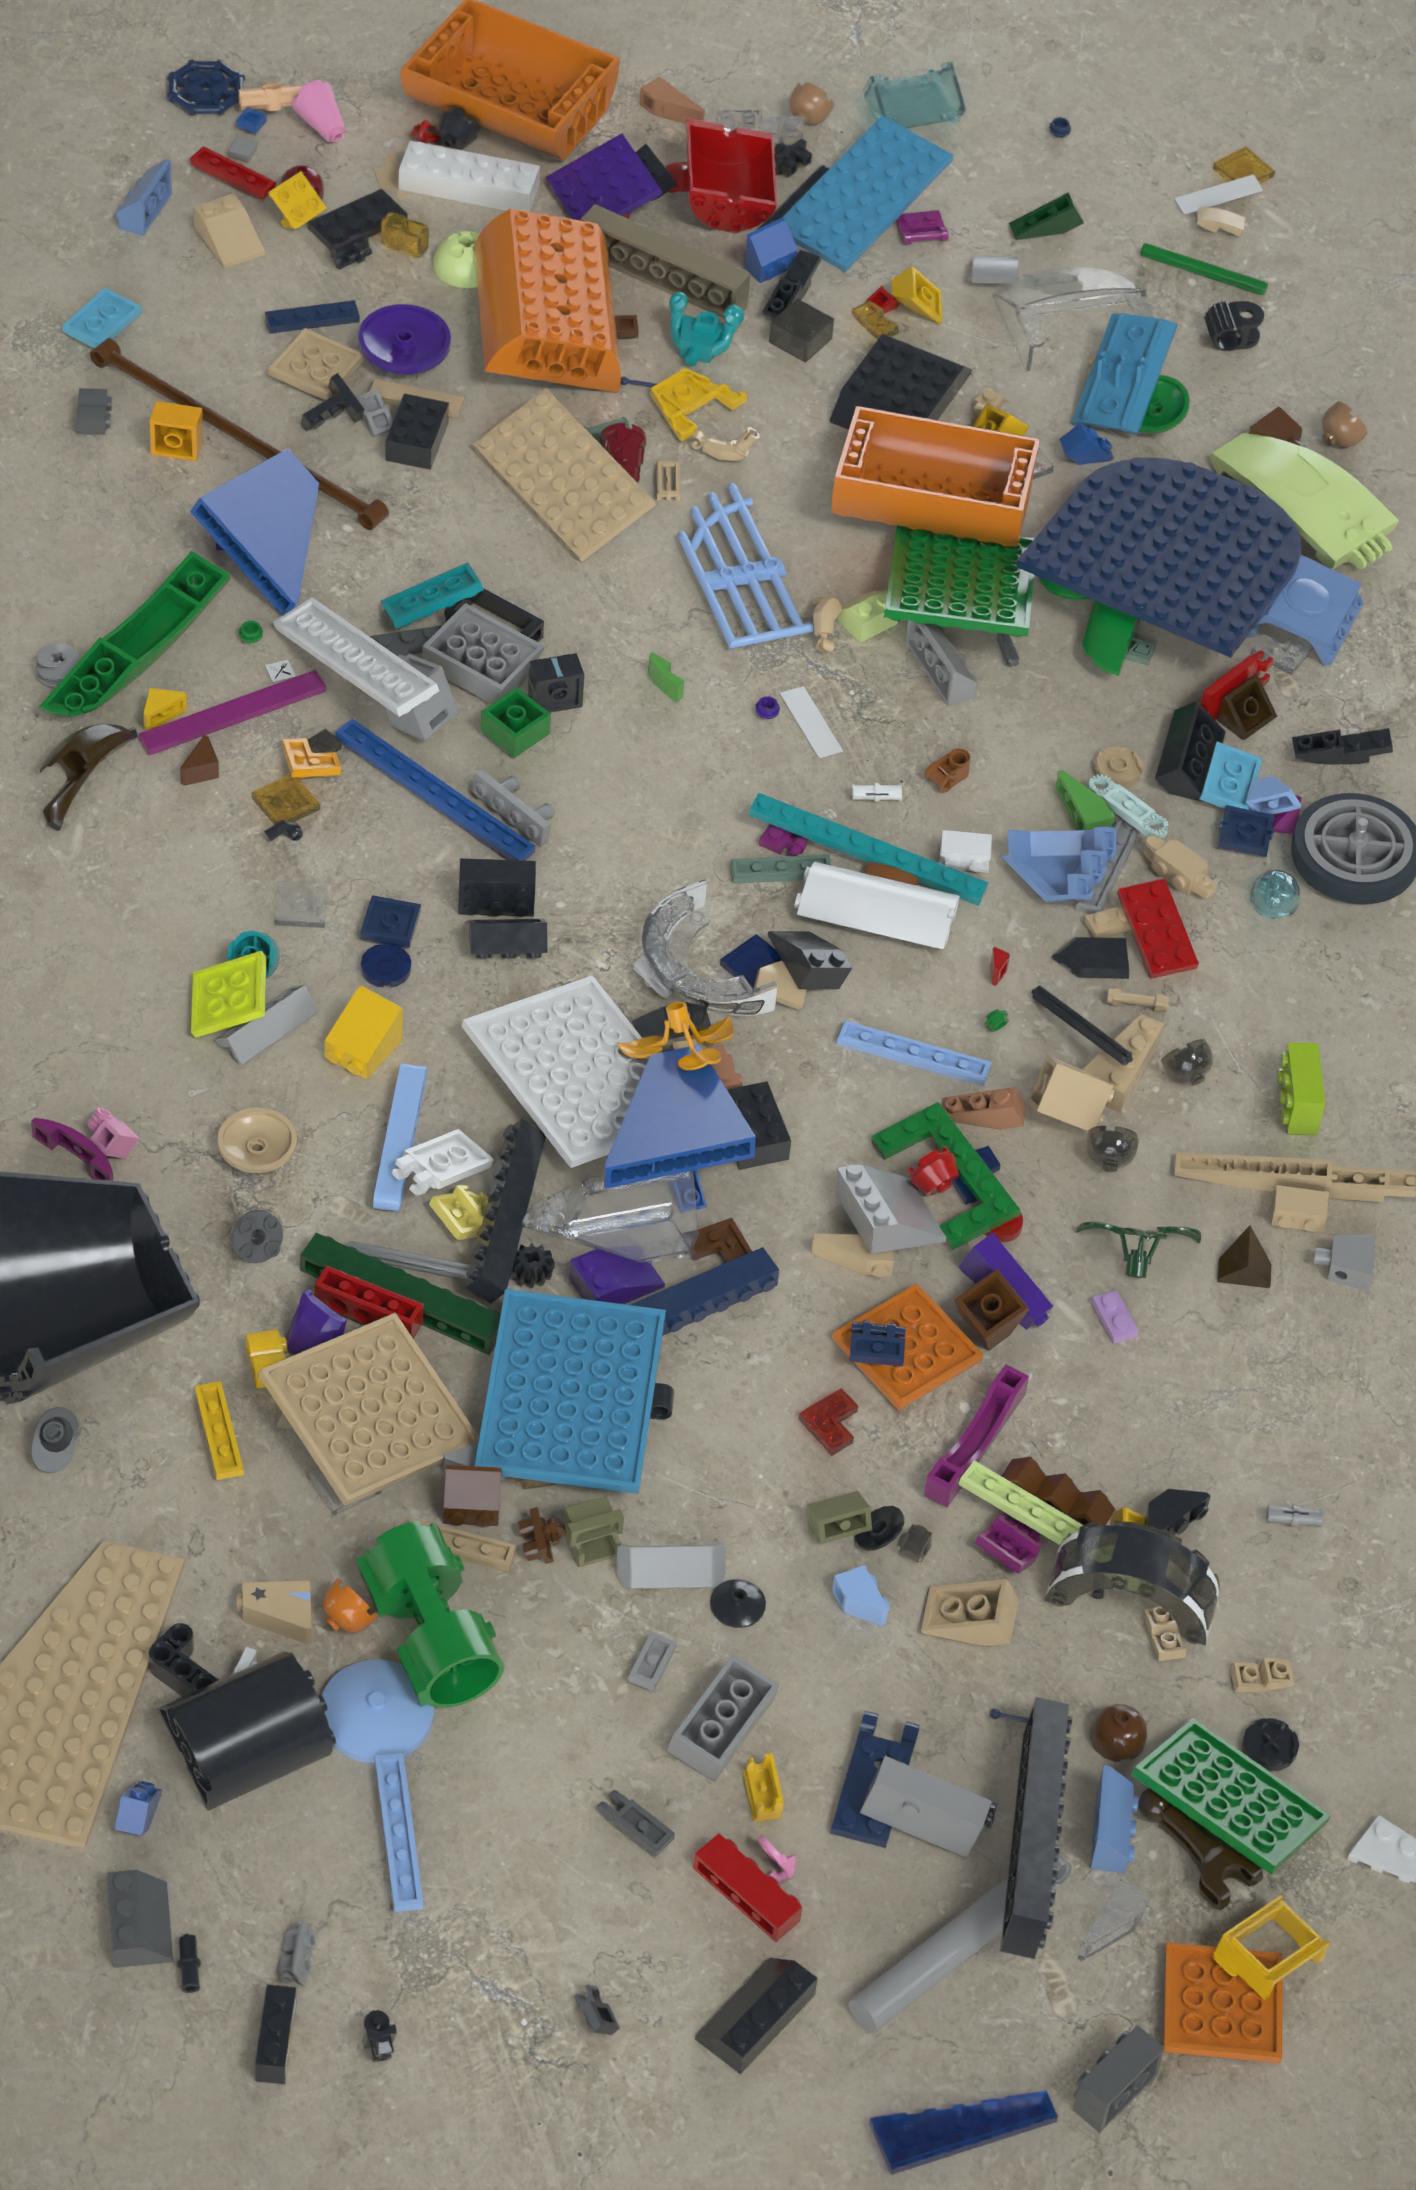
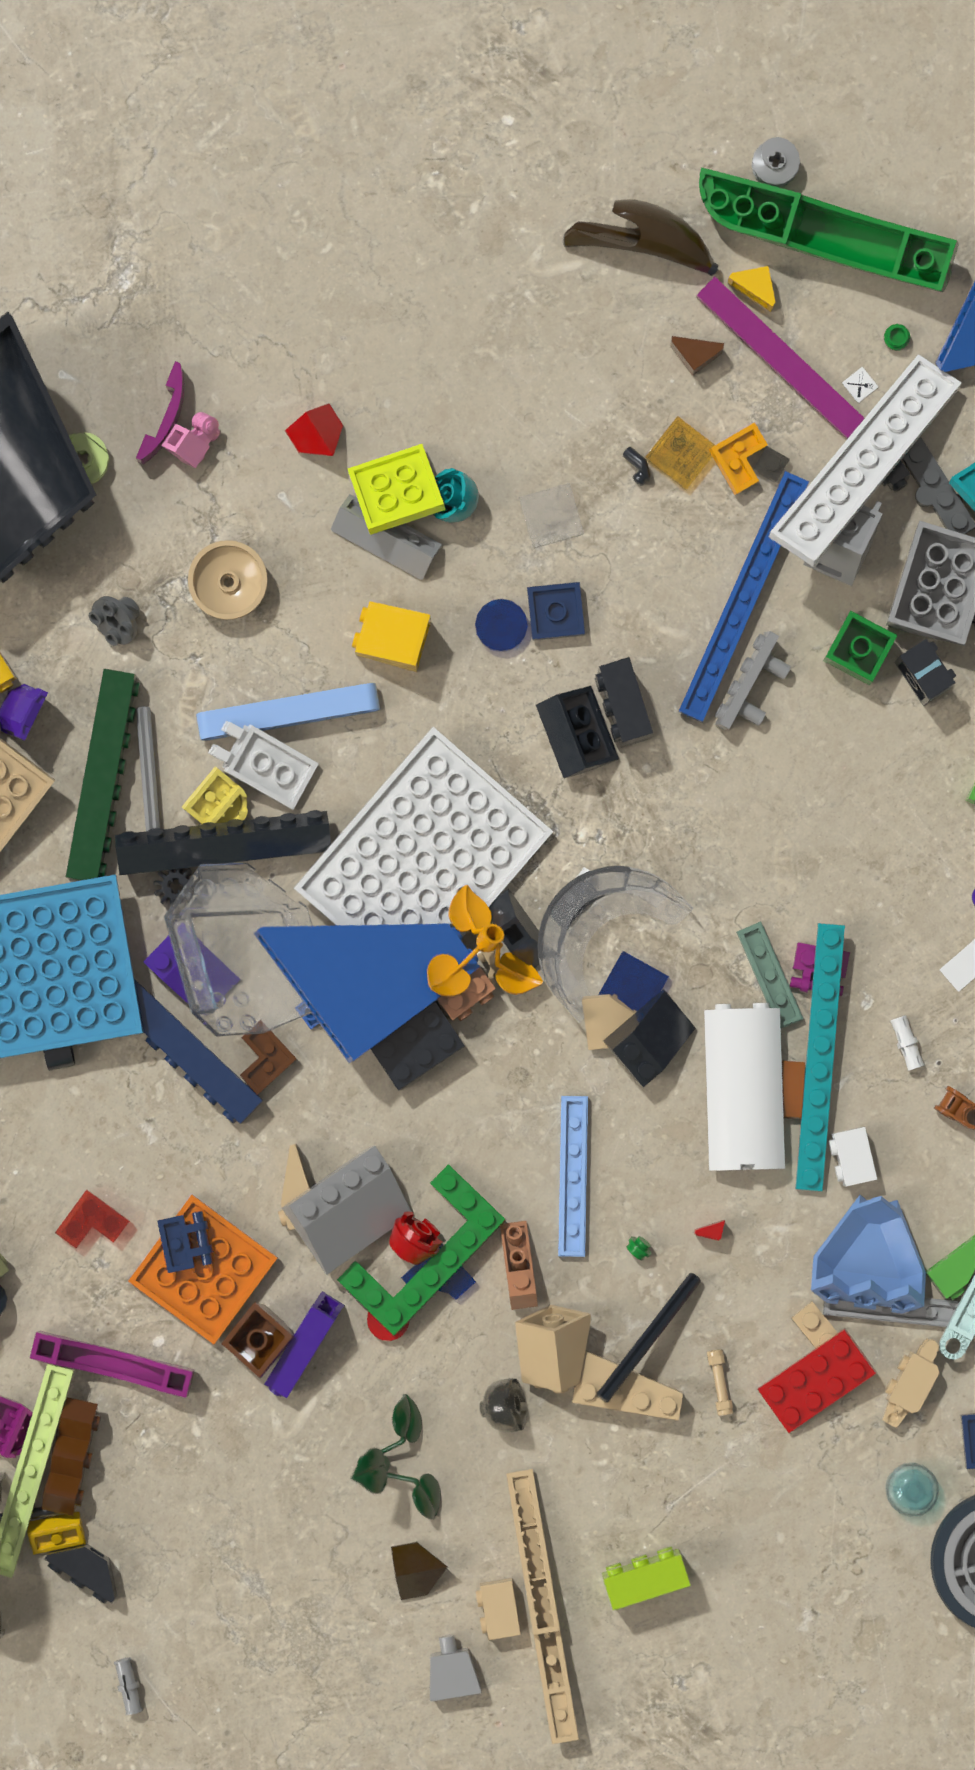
camera: 80 degrees right, 35 degrees up
(147, 1047) = (316, 431): none -> red slope
(366, 1301) = (72, 750): red brick -> none
(1095, 957) = (764, 1324): black tile -> none
(1114, 1317) = (310, 1457): lavender plate -> none
(1189, 1063) = (644, 1456): clear smoke cylinder -> none

